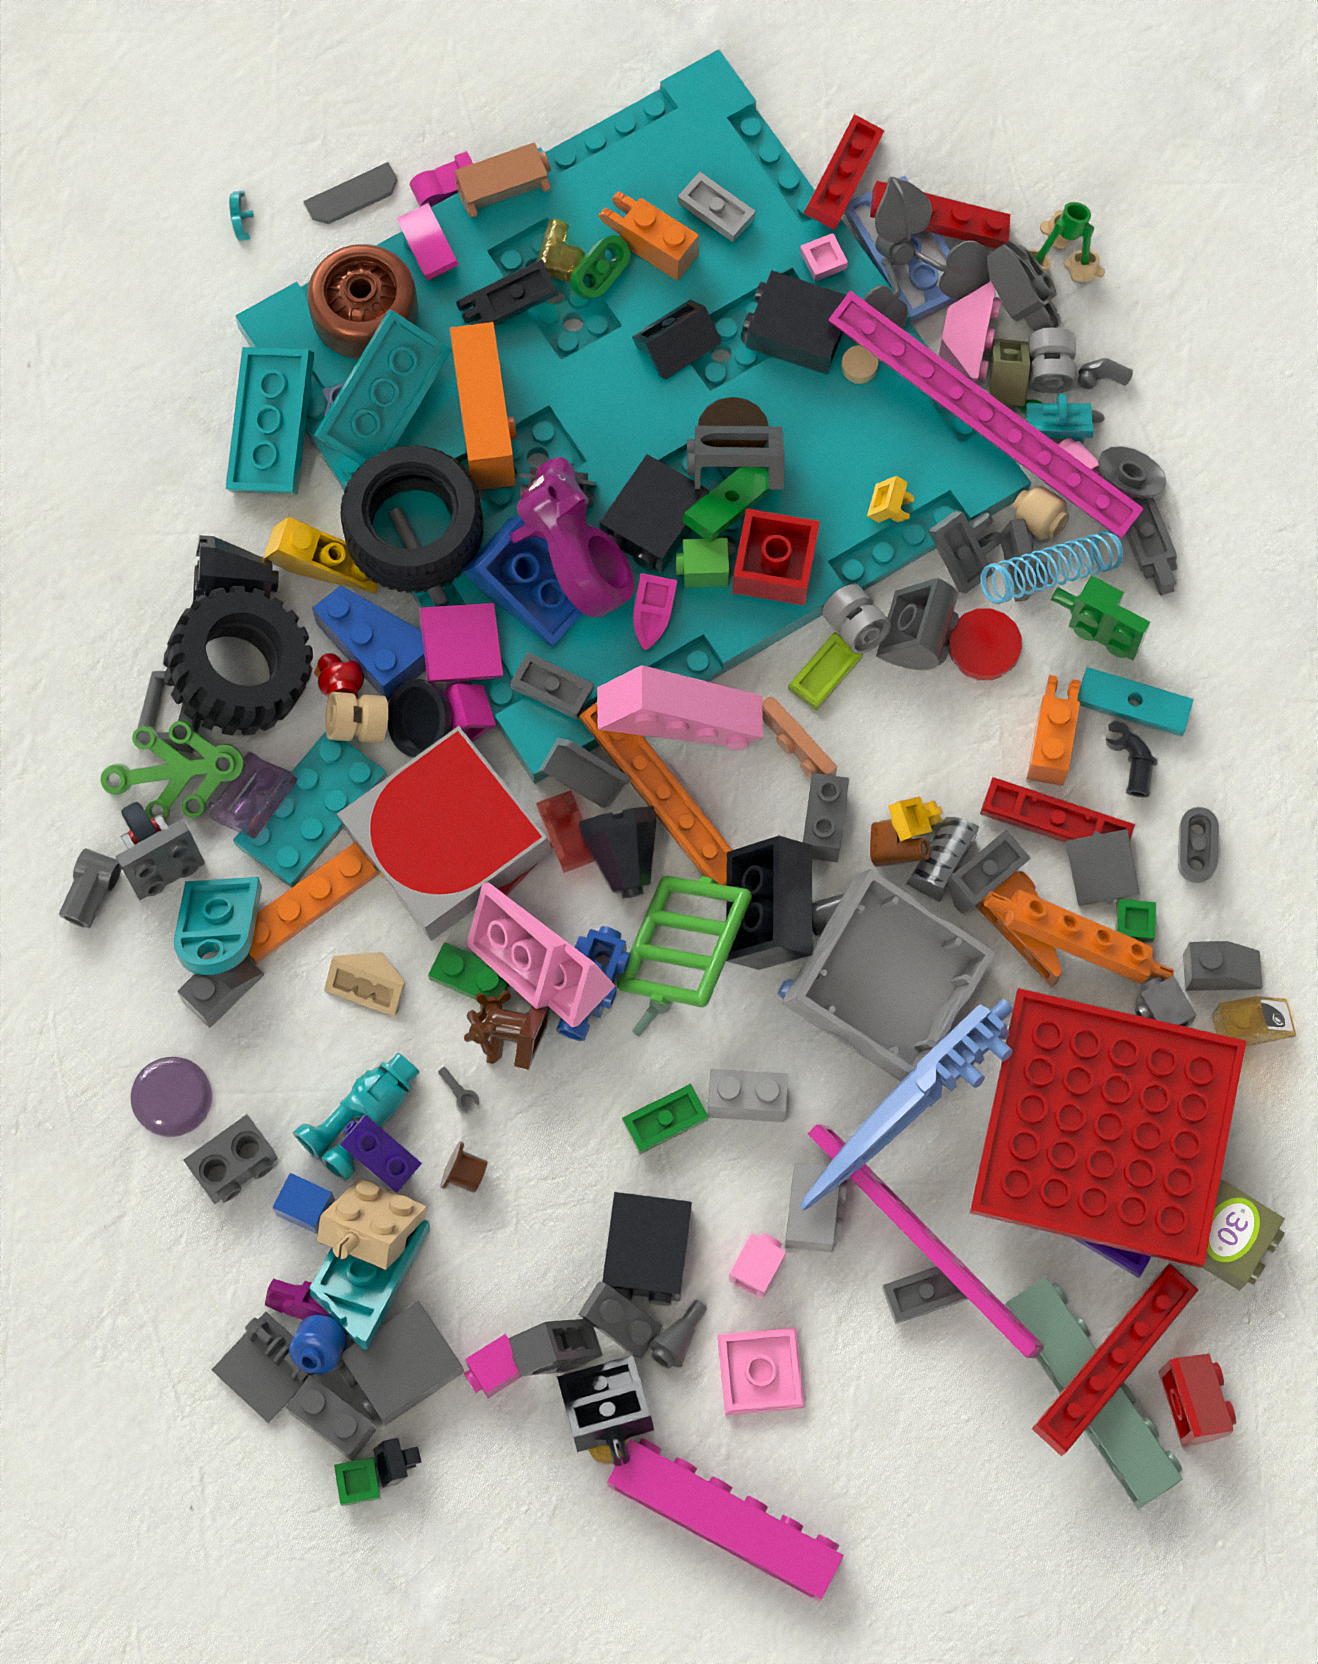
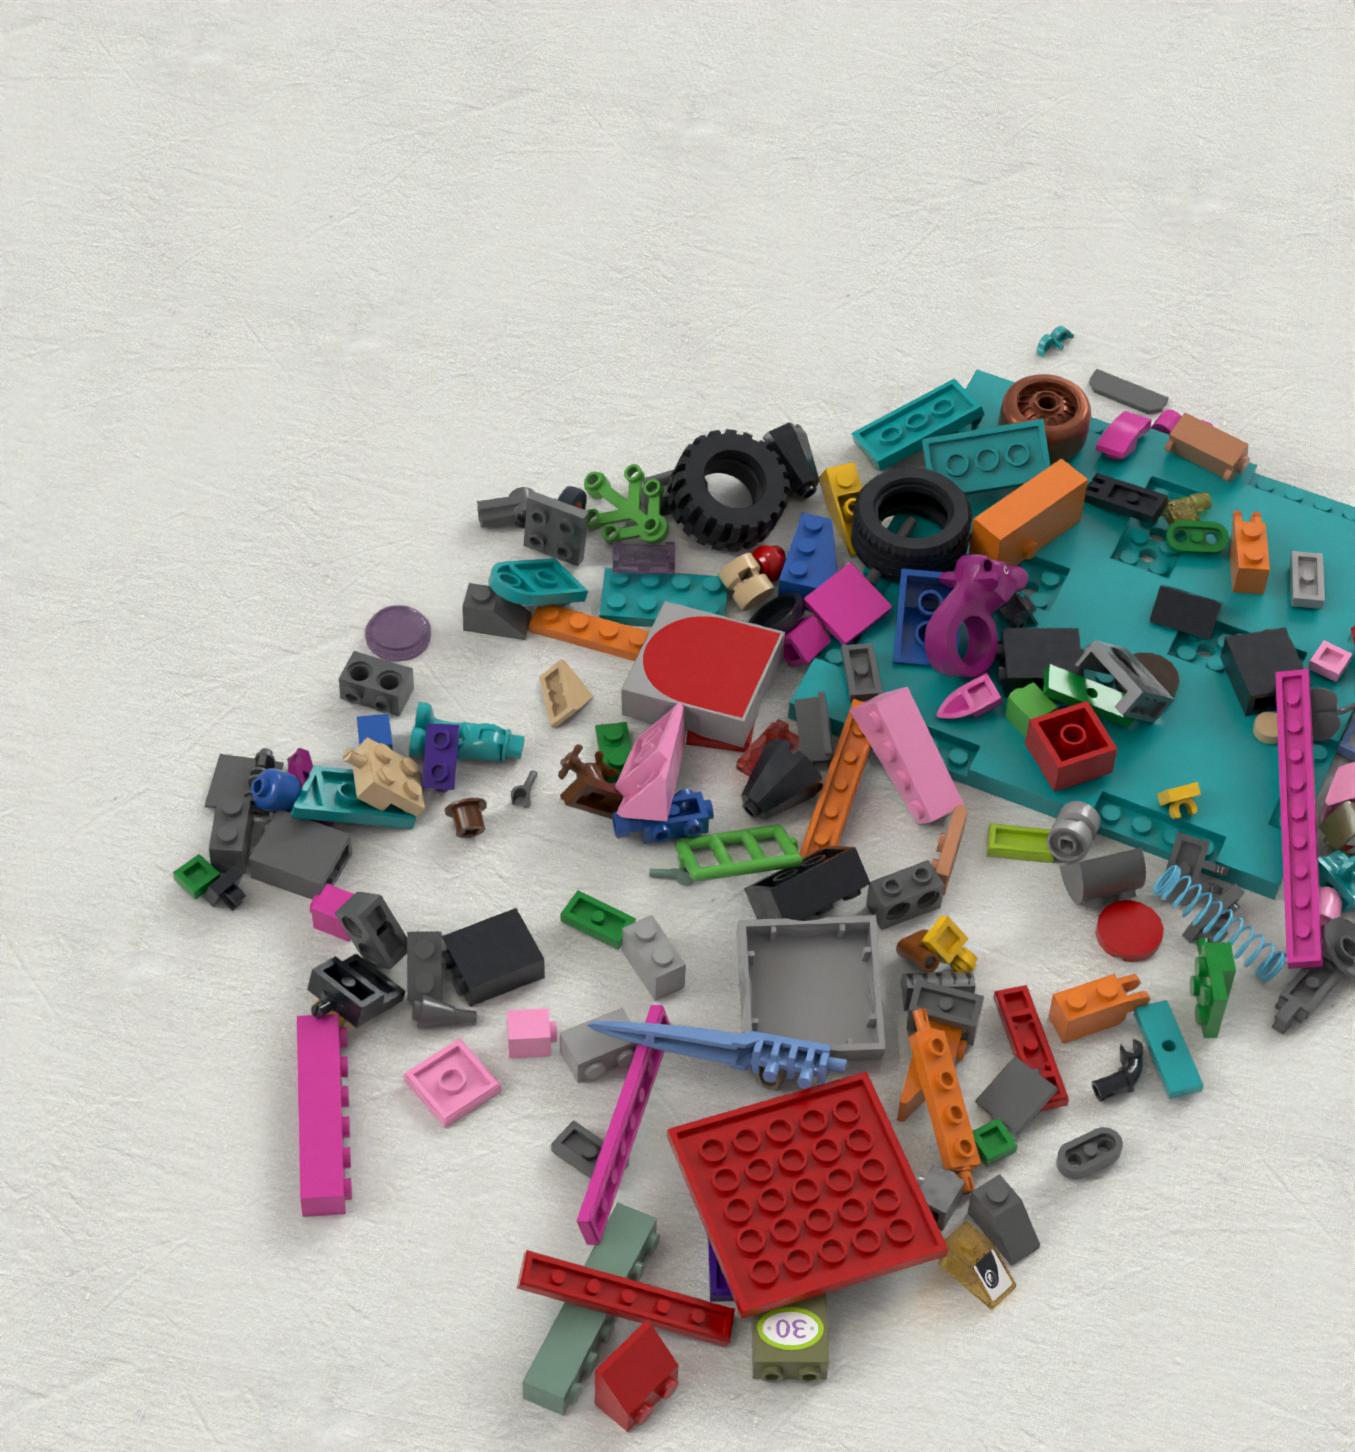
camera: 55 degrees right, 20 degrees down
(1042, 511) = (1262, 906): tan head -> none

